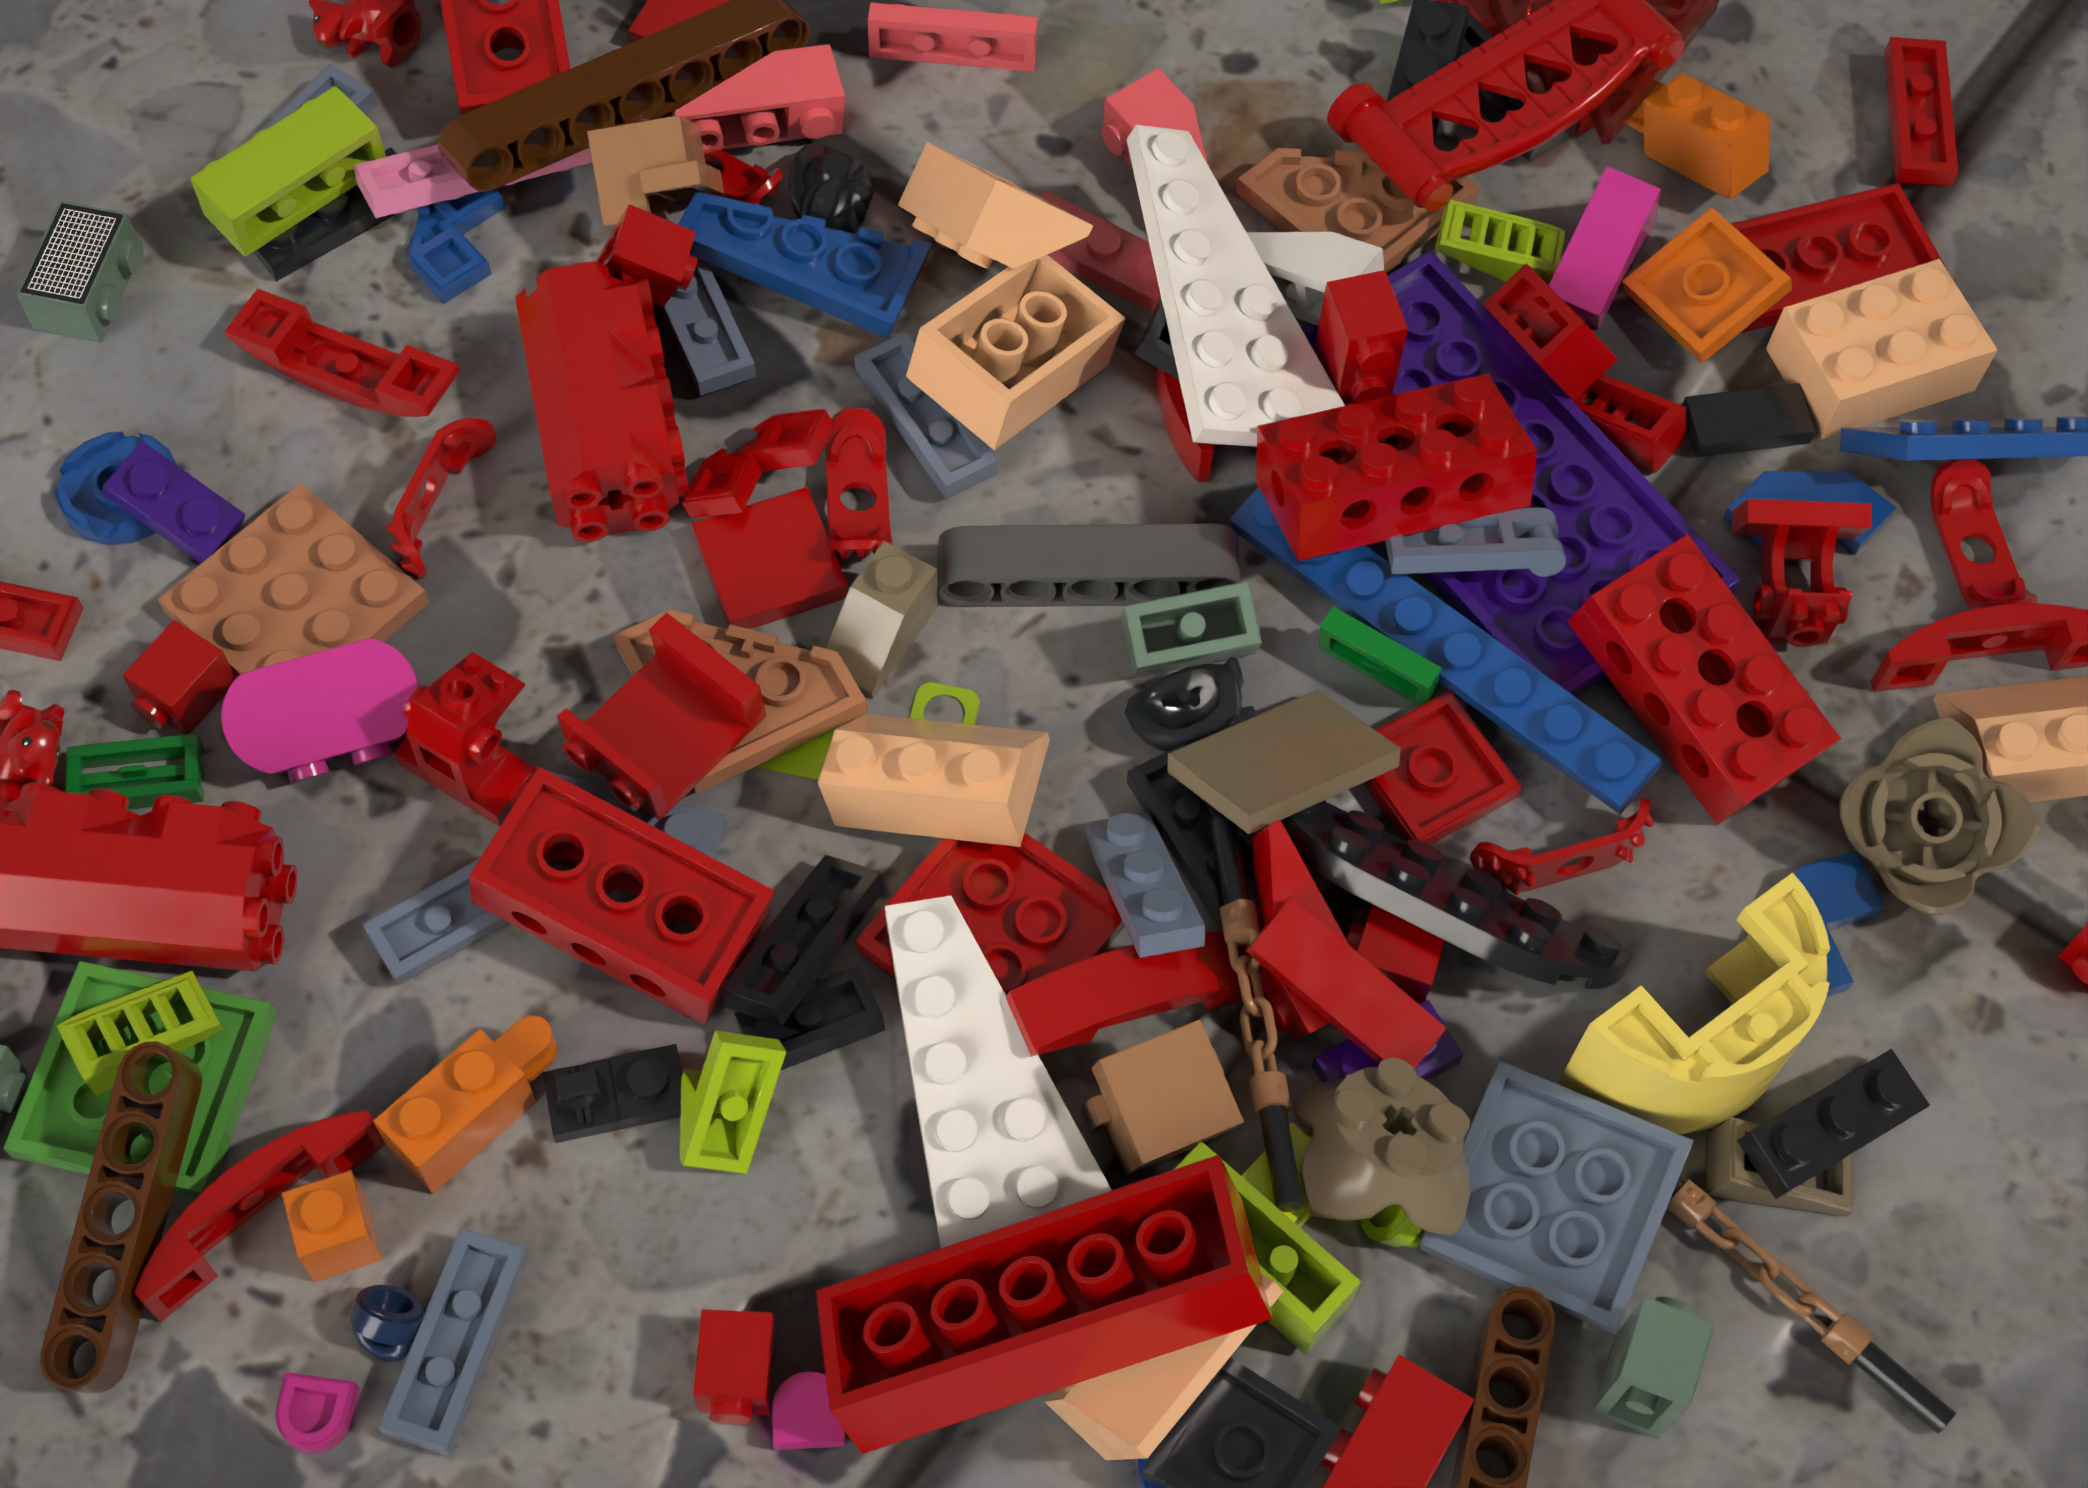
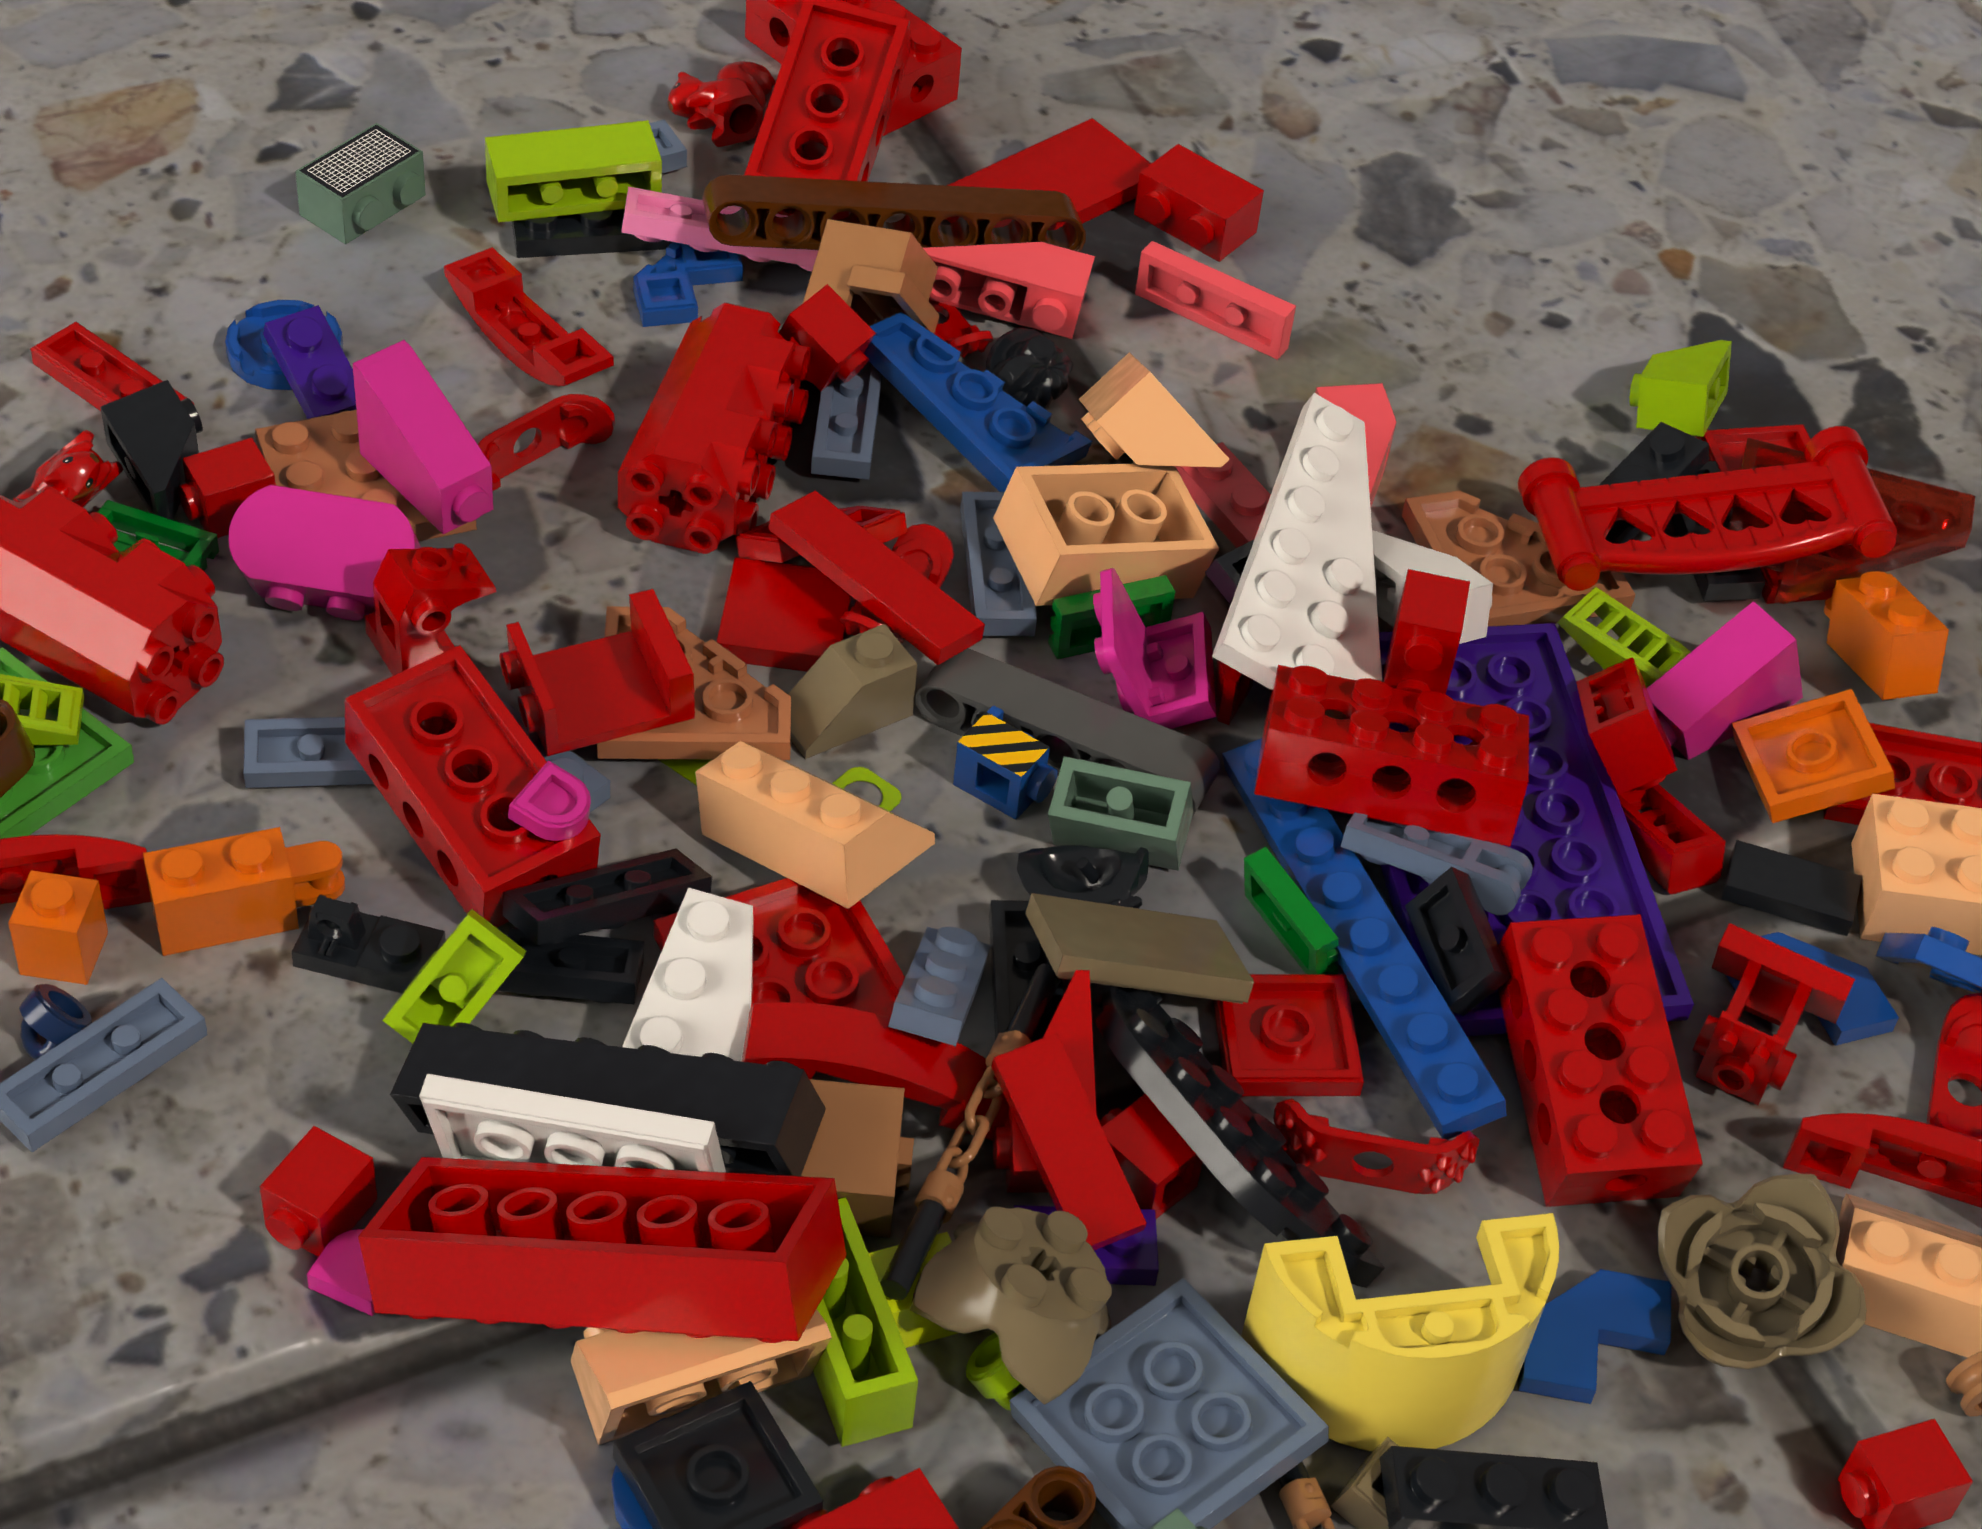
camera: 25 degrees right, 15 degrees down
(80, 668) = (149, 439): none -> black slope
(347, 552) = (419, 439): none -> dark pink slope
(720, 886) = (552, 804): none -> dark pink tile
(845, 493) = (876, 577): none -> red tile
(944, 1222) = (537, 1127): none -> white tile
(949, 1156) = (760, 1111): none -> black brick
(1057, 626) = (1003, 765): none -> blue brick
(1058, 425) = (1078, 625): none -> green tile
(1129, 456) = (1160, 668): none -> dark pink bracket
(1539, 621) = (1458, 941): none -> black plate

